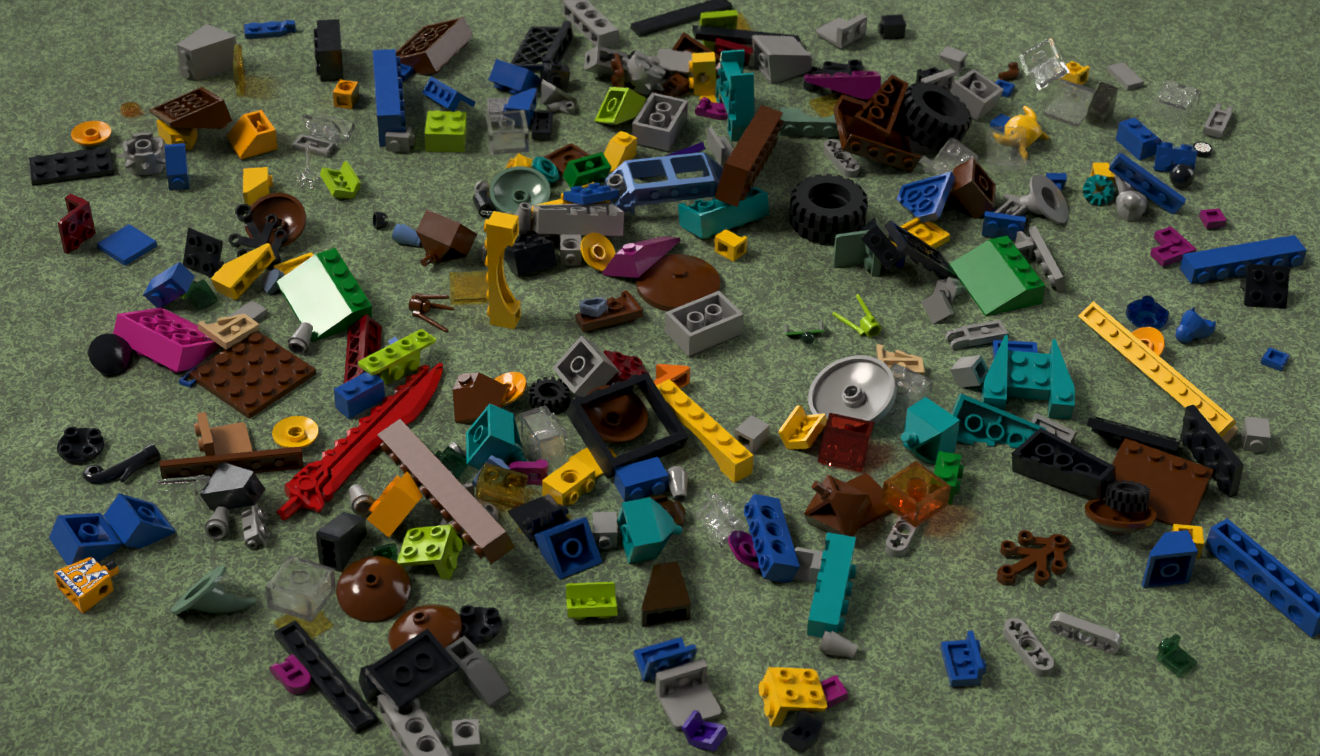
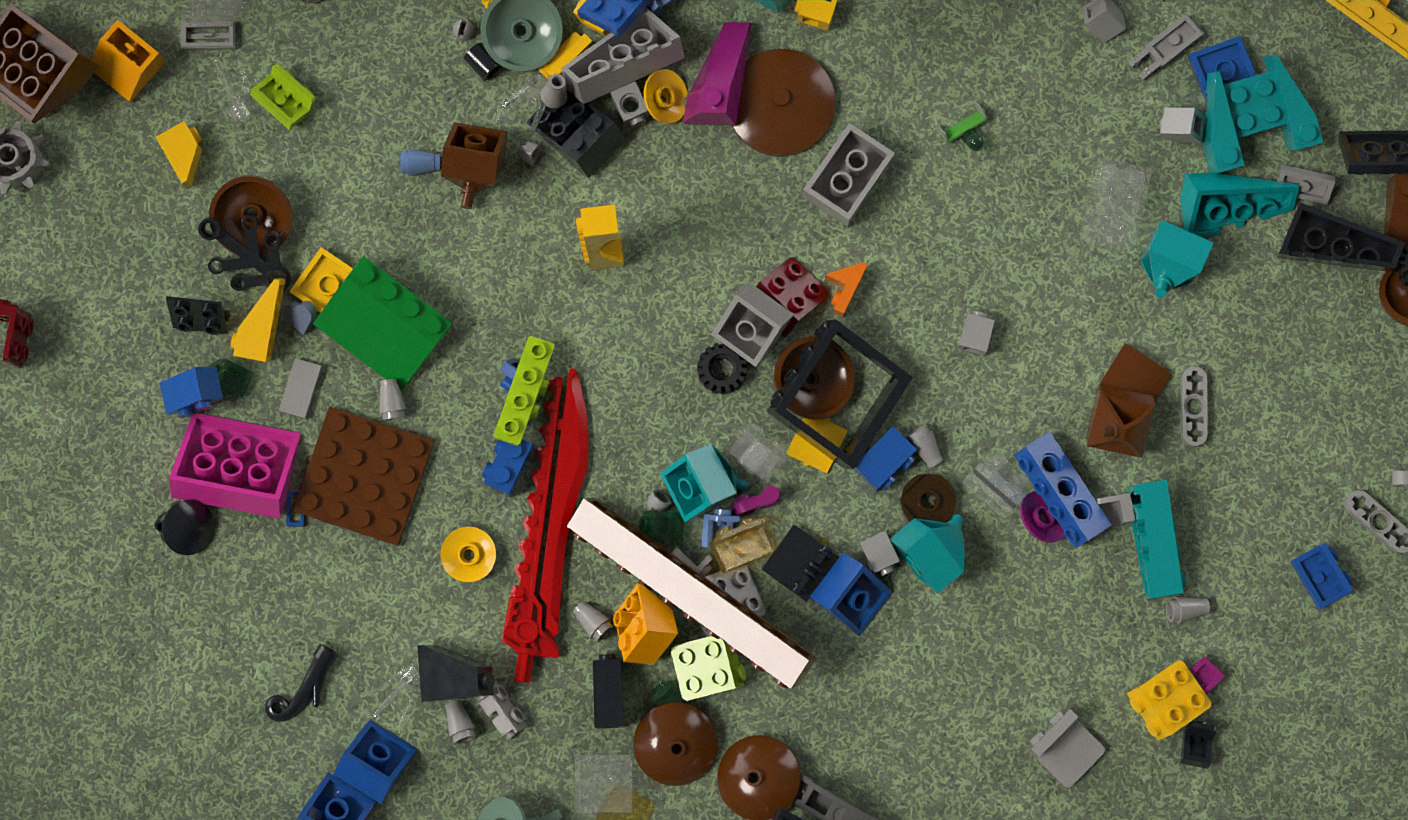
camera: 20 degrees left, 40 degrees up
(80, 444) = (237, 674): black dish -> none
(126, 244) = (85, 323): blue tile -> none
(177, 166) = (72, 171): blue slope -> none
(221, 439) = (394, 600): medium nougat bracket -> none
(229, 330) = (302, 427): tan wing -> none
(255, 461) = (425, 634): reddish brown tile -> none
(361, 344) = (477, 386): dark red fence -> none
(379, 220) = (369, 146): black hinge -> none
(419, 304) = (499, 277): reddish brown plant -> none
(468, 287) = (540, 218): clear yellow tile -> none
(474, 393) = (648, 416): reddish brown slope -> none
(480, 623) = (808, 740): black dish -> none
(516, 384) = (657, 384): light orange dish -> none
(569, 482) = (809, 482): yellow brick -> none
(591, 600) = (911, 662): lime bracket -> none
(593, 307) = (707, 201): sand blue tile -> none
(617, 311) = (728, 192): reddish brown wing -> none
(663, 656) = (1024, 712): blue bracket -> none
(665, 596) = (983, 618): dark brown slope -> none
(703, 733) = (1101, 787): dark purple bracket -> none
(729, 454) = (937, 363): yellow arch -> none
(801, 429) = (1028, 300): yellow bracket -> none
(846, 442) = (1086, 306): clear red slope -> none
(854, 388) = (1066, 226): light grey dish -> none
(868, 323) = (1036, 85): lime plant -> none
(901, 358) = (1093, 139): tan wing -> none
(915, 493) = (1196, 364): clear orange brick -> none
(949, 469) = (1214, 312): green brick -> none
(1054, 544) = (1347, 386): reddish brown plant -> none

